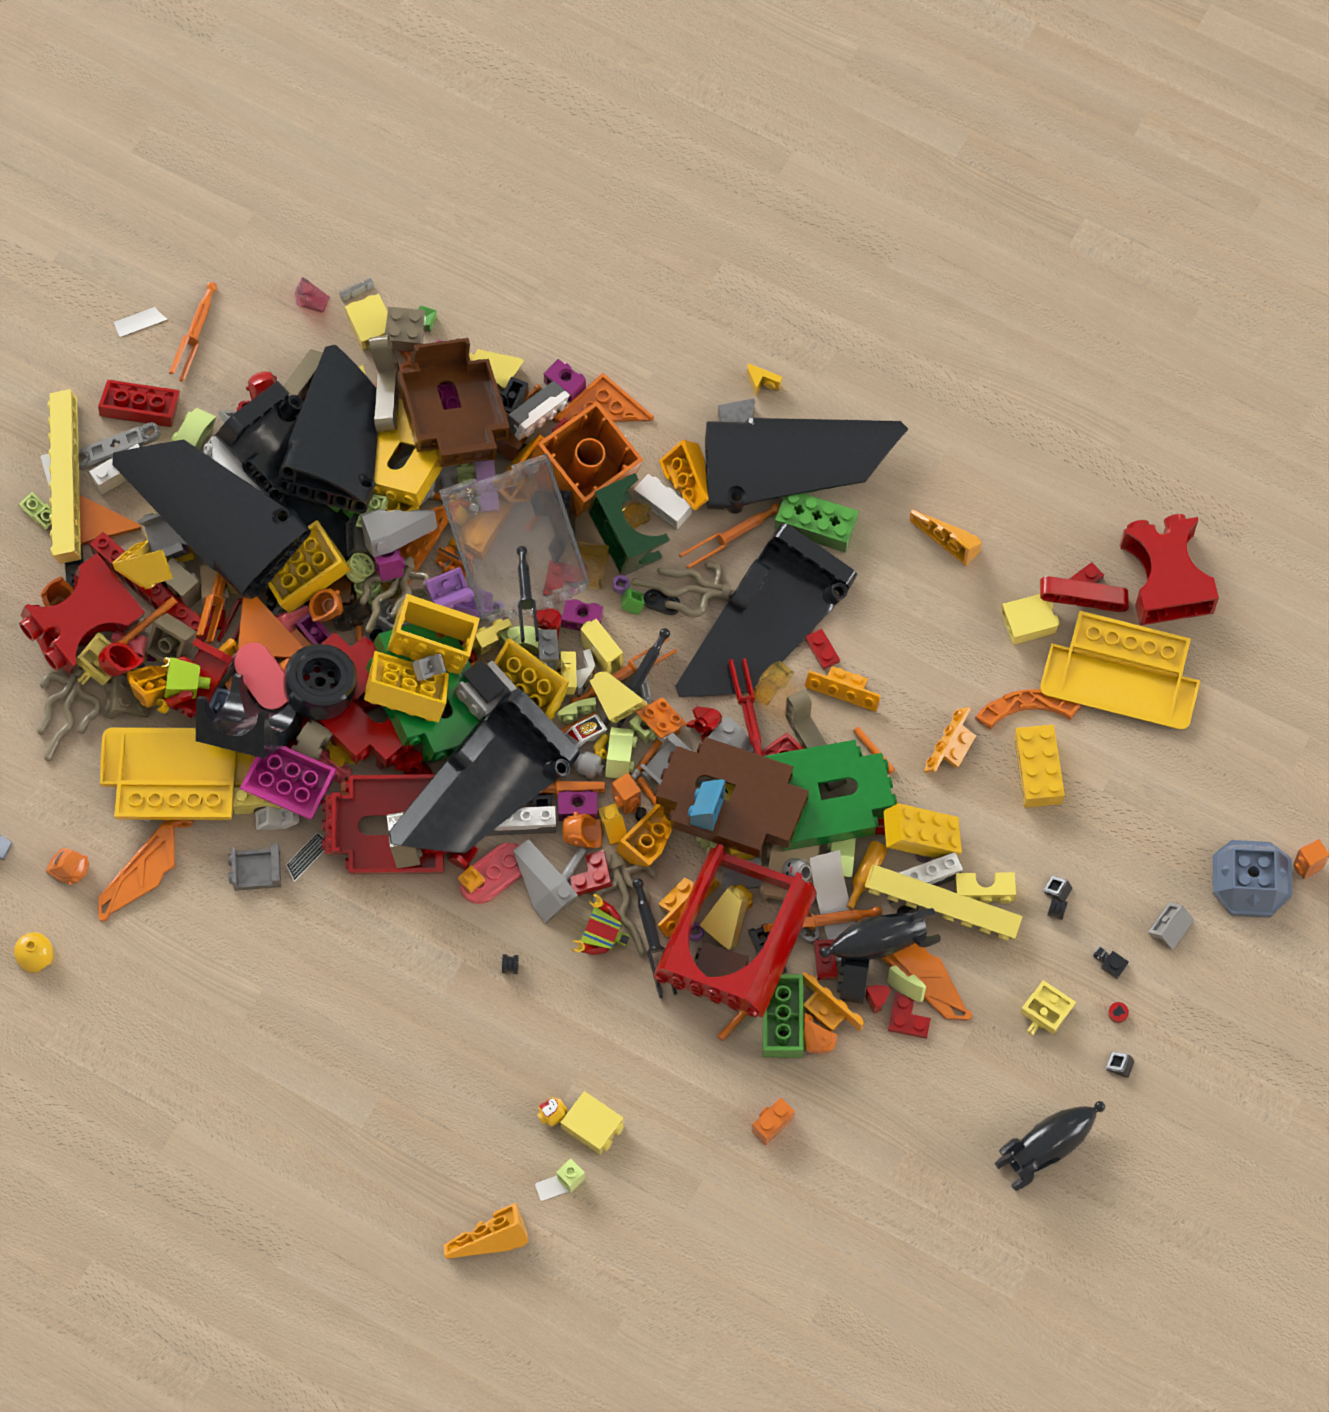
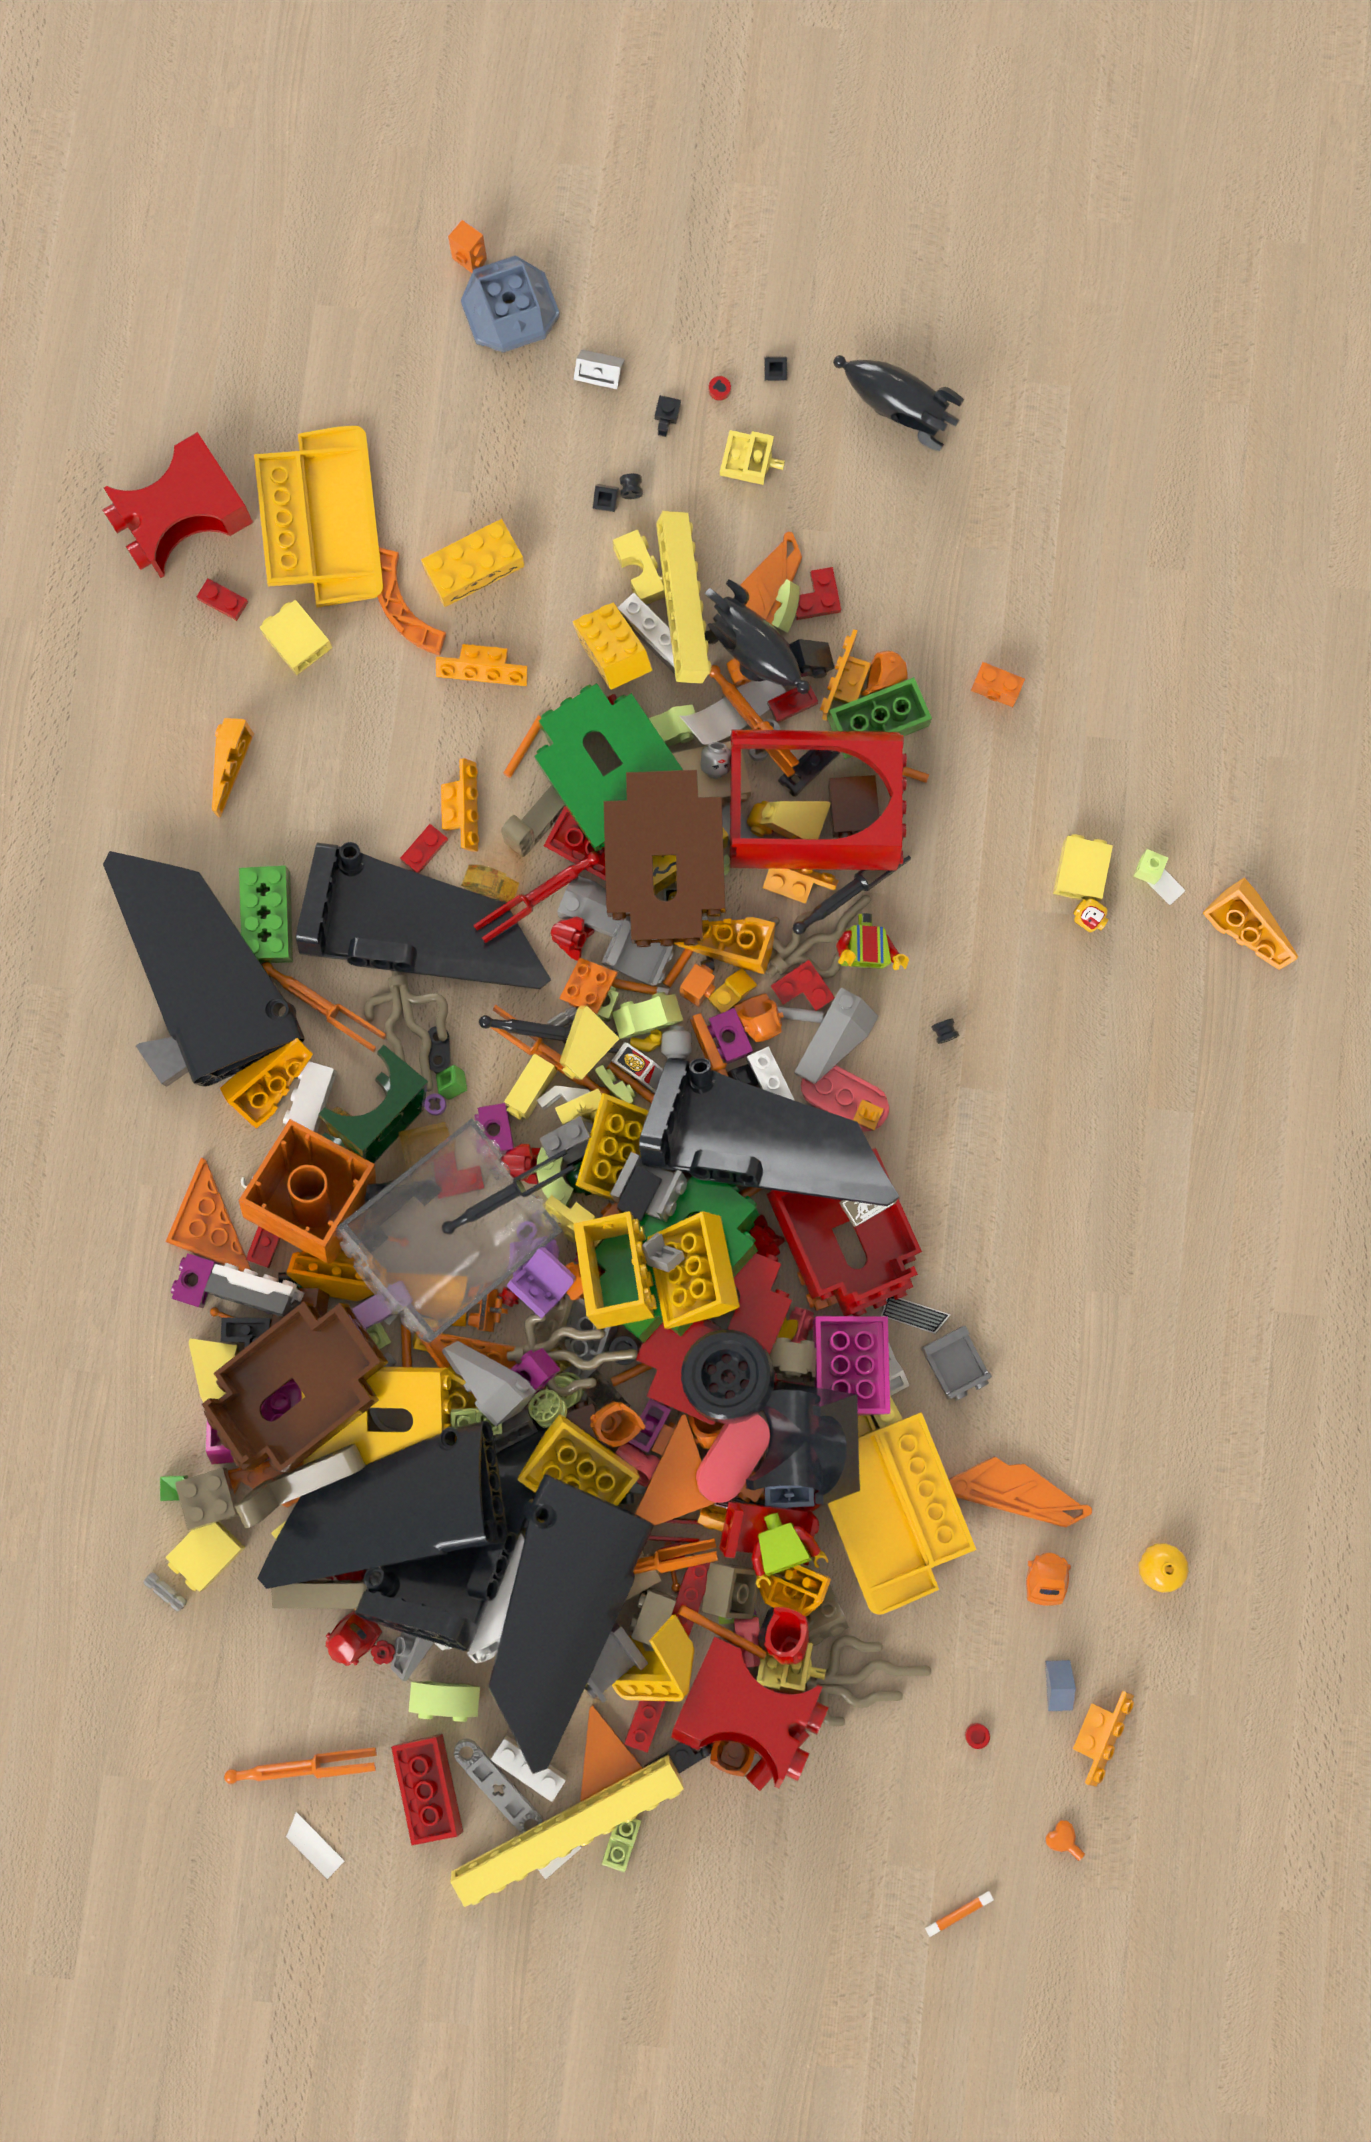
camera: 115 degrees left, 15 degrees up
(310, 296) = (198, 1642): clear pink slope -> none
(707, 804) = (696, 868): dark azure slope -> none
(759, 377) = (102, 1056): yellow slope -> none
(874, 856) = (672, 696): light orange piece -> none
(877, 996) = (815, 627): red tile -> none
(1084, 594) = (244, 585): red beam -> none

